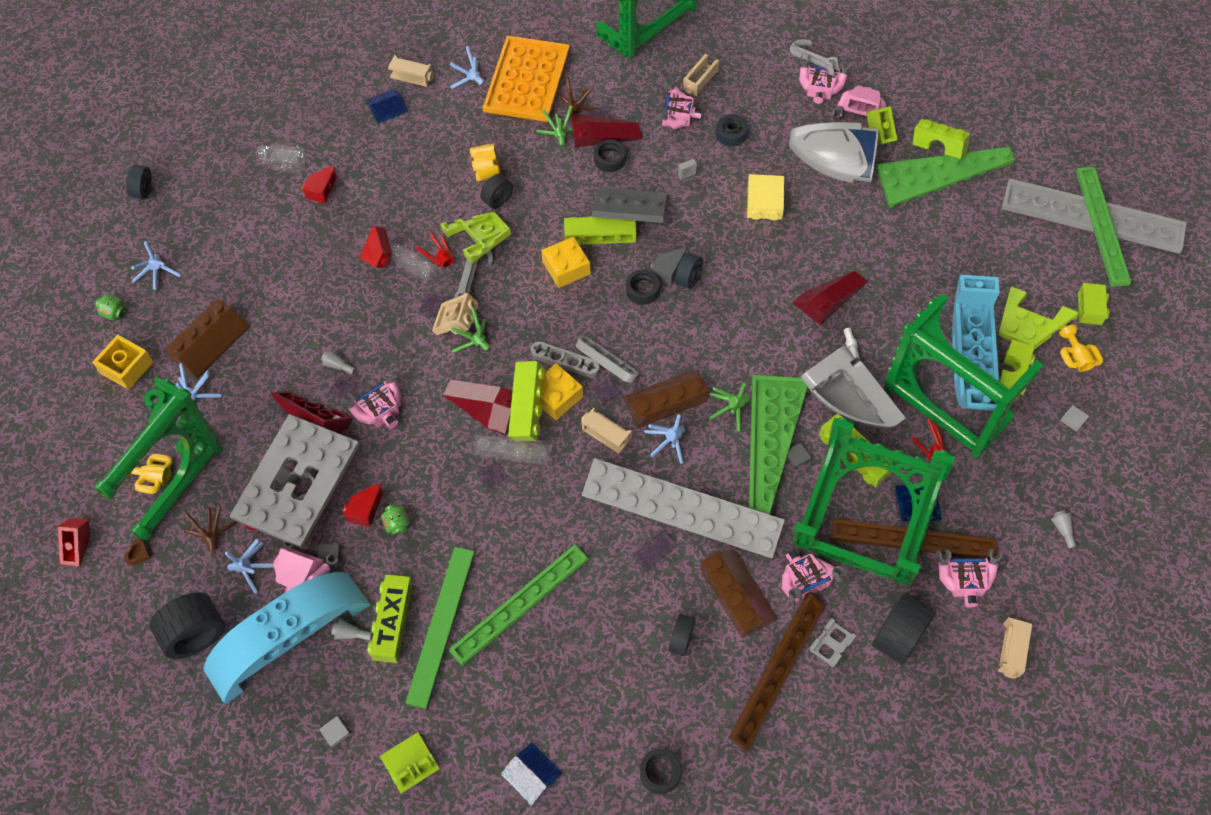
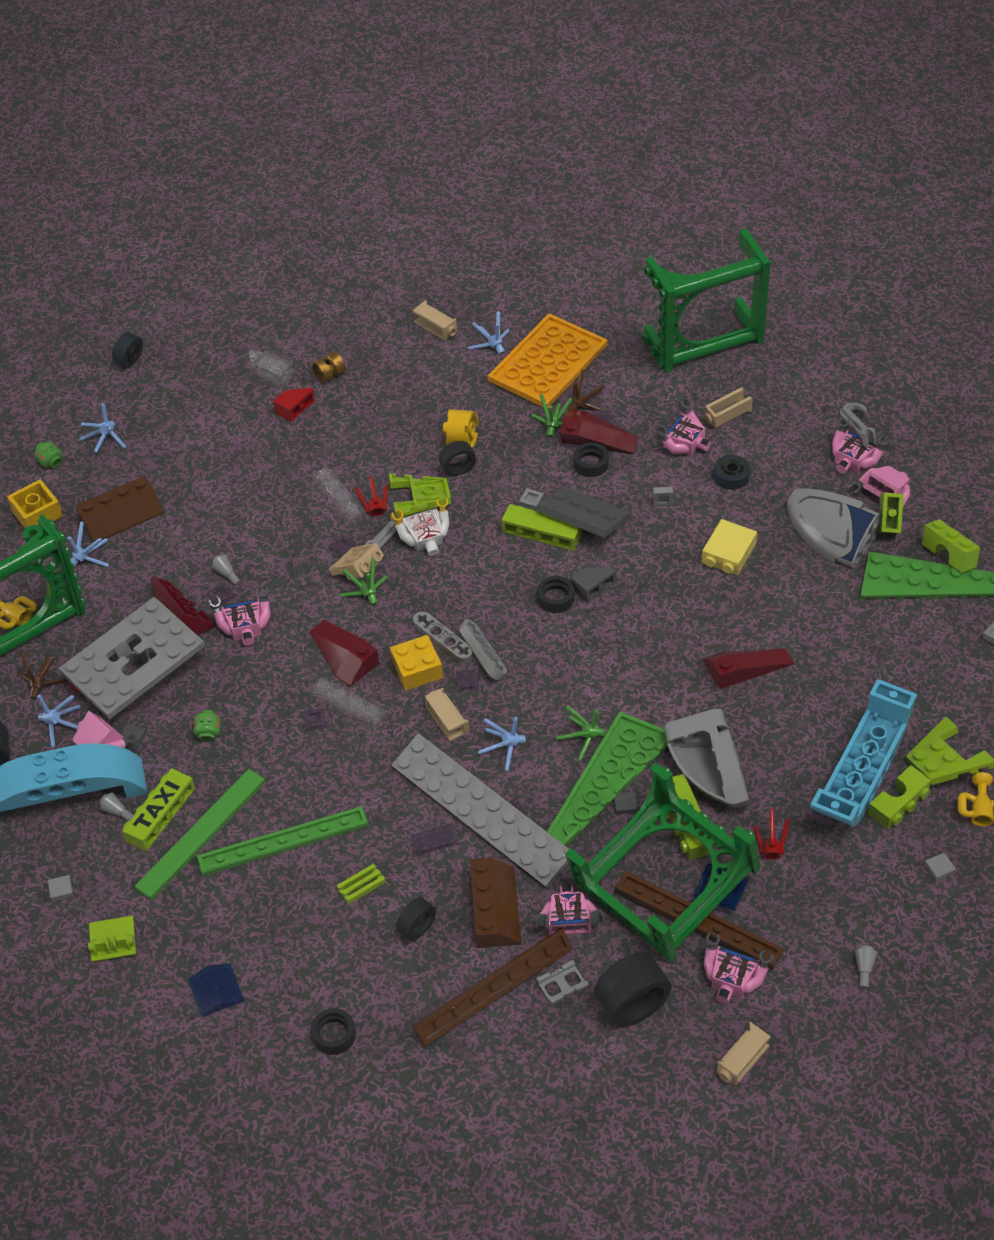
camera: 25 degrees right, 10 degrees down
(336, 141) = (329, 366): none -> pearl gold wheel
(363, 506) = (185, 703): red slope -> none
(377, 248) = (314, 476): red slope -> none
(386, 105) = (395, 347): clear blue slope -> none
(500, 265) = (424, 529): none -> white torso
(526, 401) = (378, 659): lime brick -> none
(566, 262) = (490, 546): yellow brick -> none
(576, 207) = (531, 499): none -> light grey tile
(620, 603) = (358, 884): none -> lime tile
(666, 398) = (528, 705): reddish brown slope -> none
(689, 270) = (608, 592): black wheel -> none
(851, 343) = (740, 717): white bar -> none
(903, 378) = (778, 720): green arch -> none

